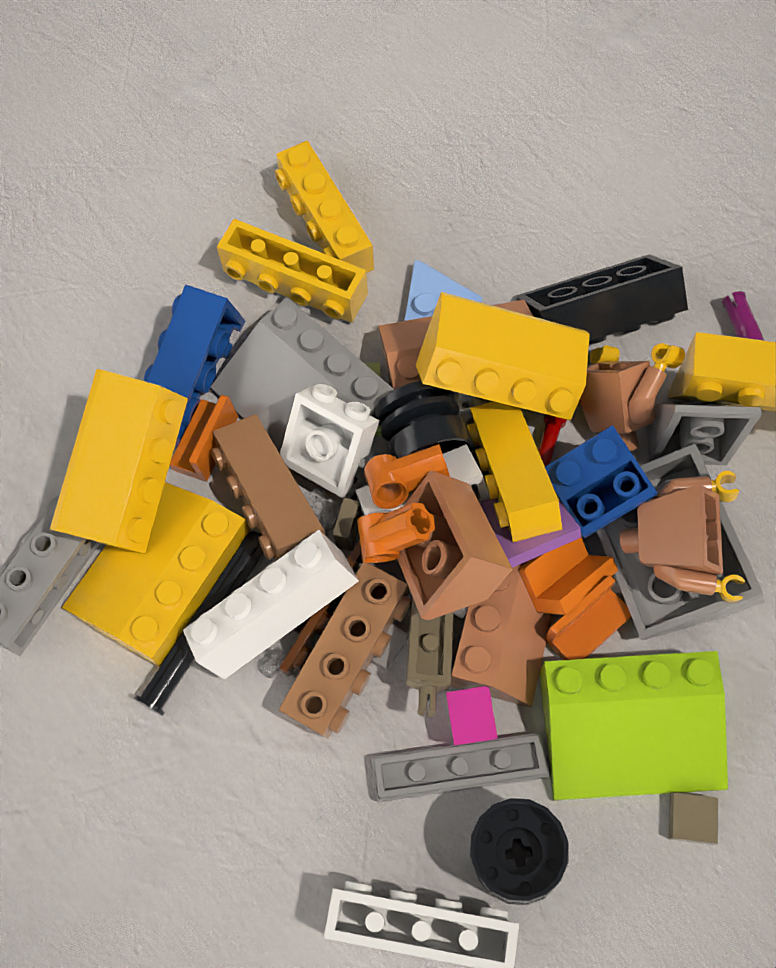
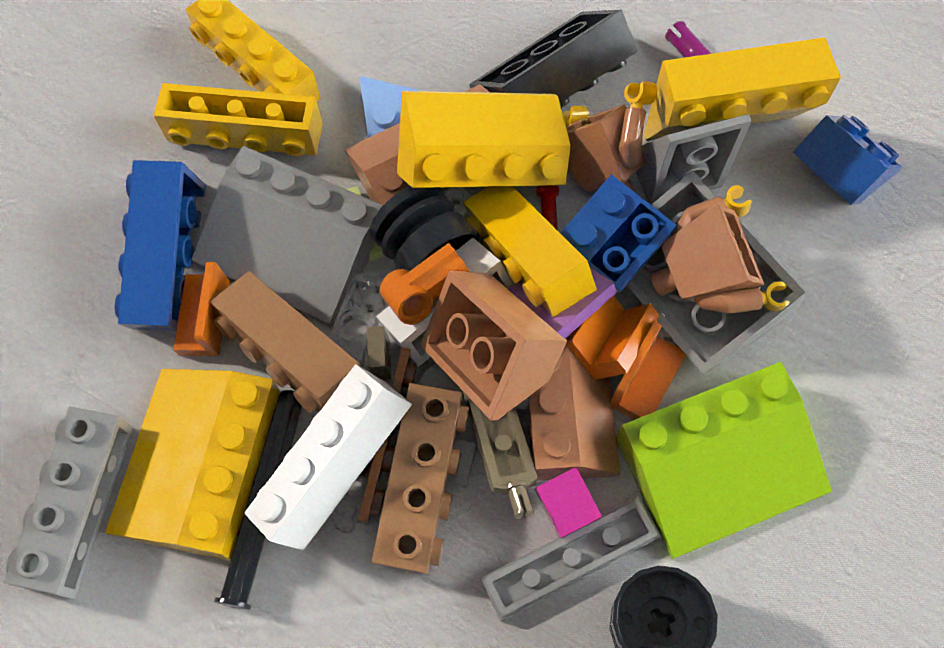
camera: 20 degrees left, 0 degrees up
(119, 462) = (120, 361): yellow slope -> none
(327, 438) = (331, 272): white plate -> none
(388, 533) = (425, 347): orange piece -> none
(693, 818) = (810, 530): dark tan tile -> none

